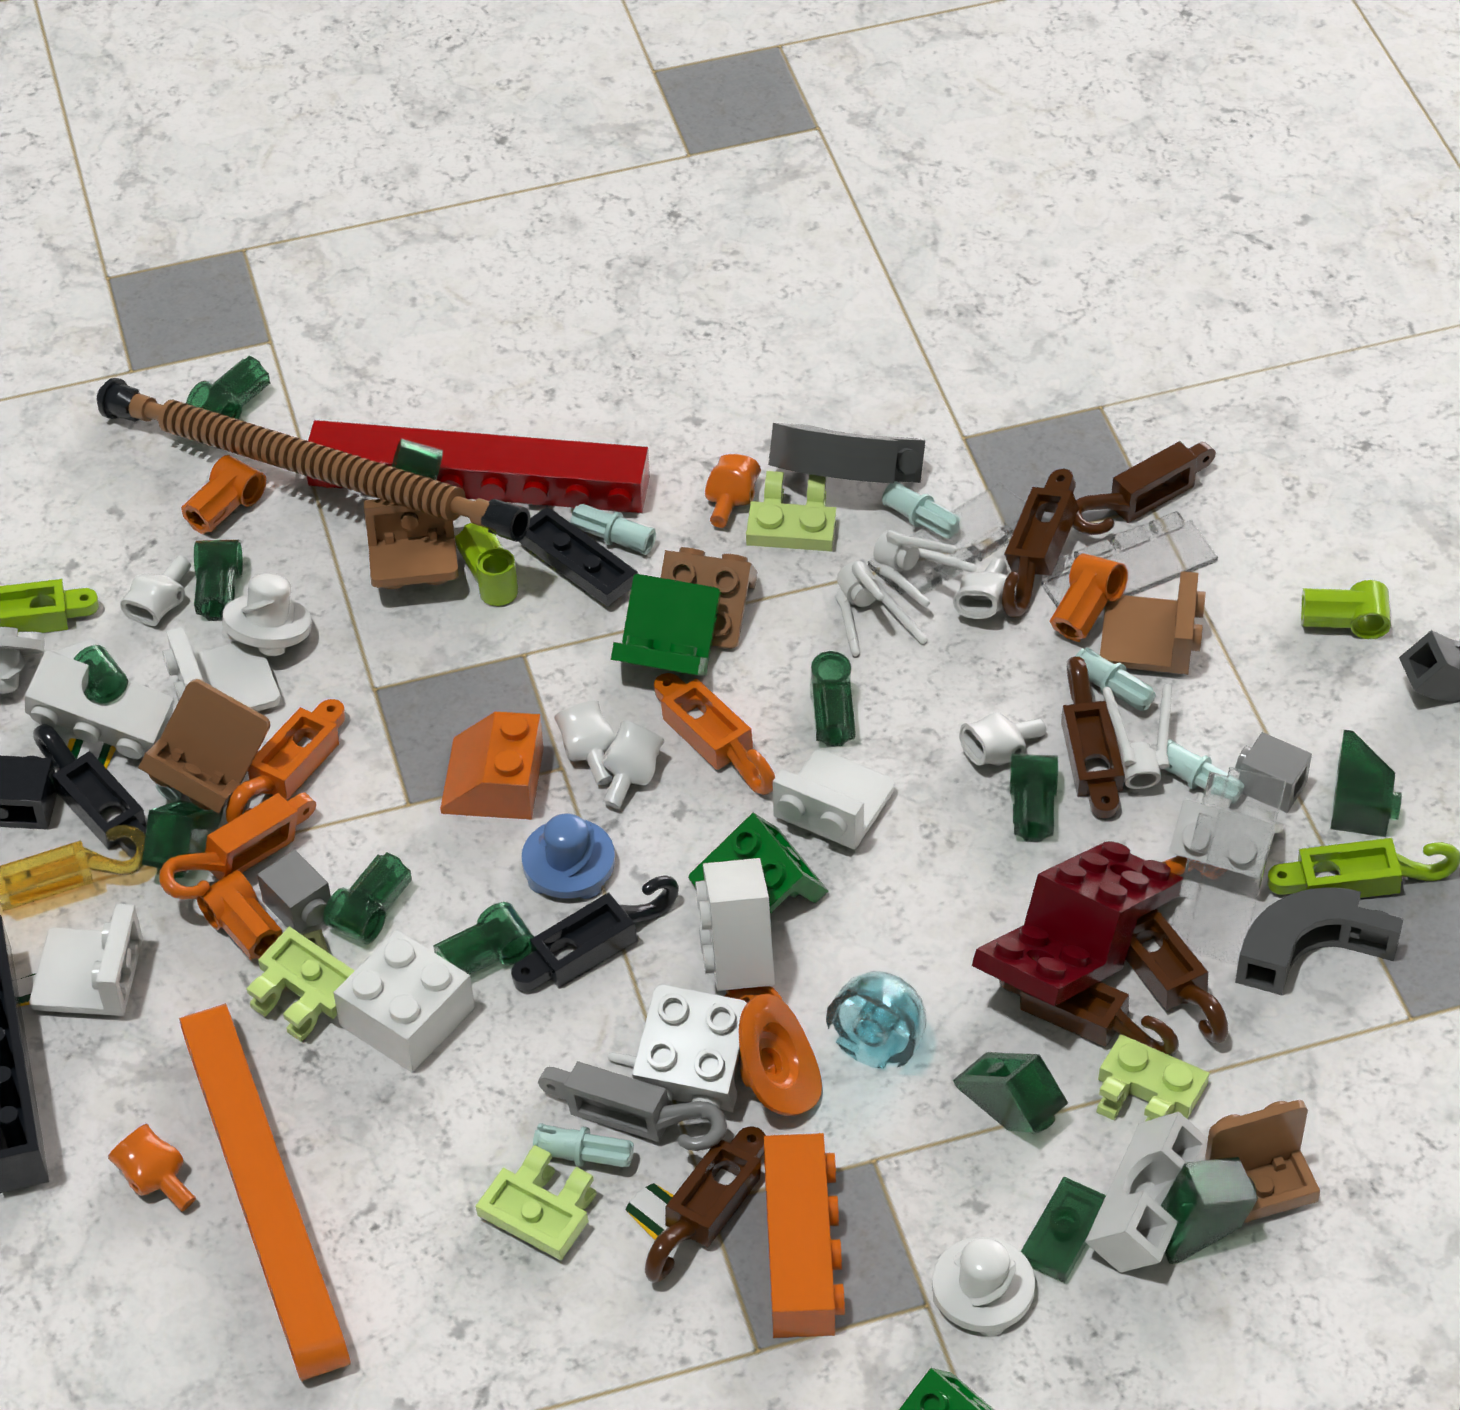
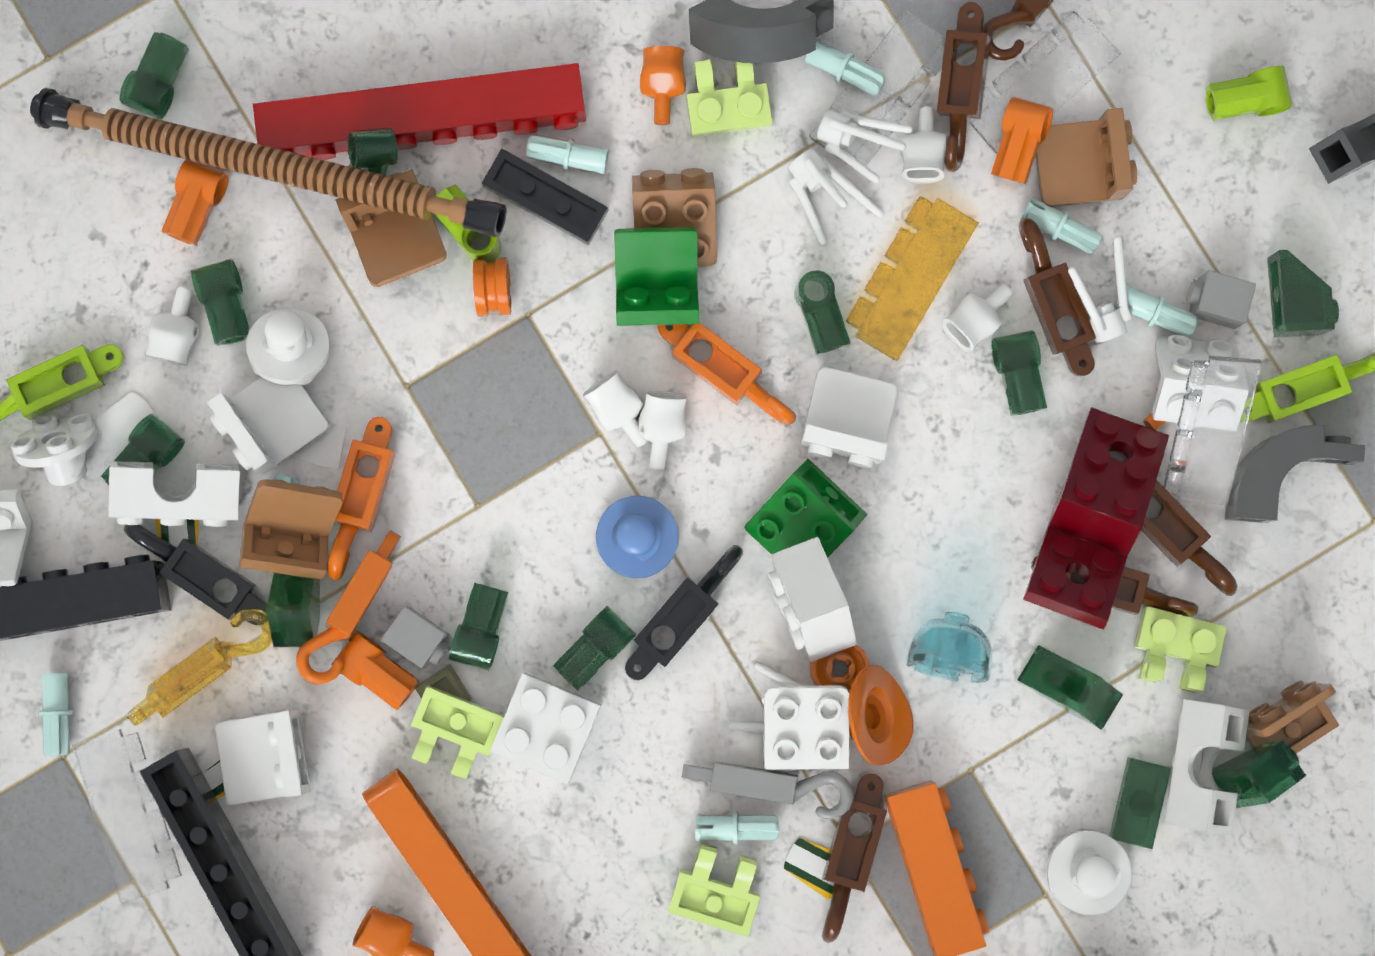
camera: 20 degrees left, 35 degrees up
(494, 610) = (492, 287): none -> orange wheel
(495, 767) = (543, 459): orange slope -> none
(940, 697) = (912, 285): none -> clear yellow windscreen

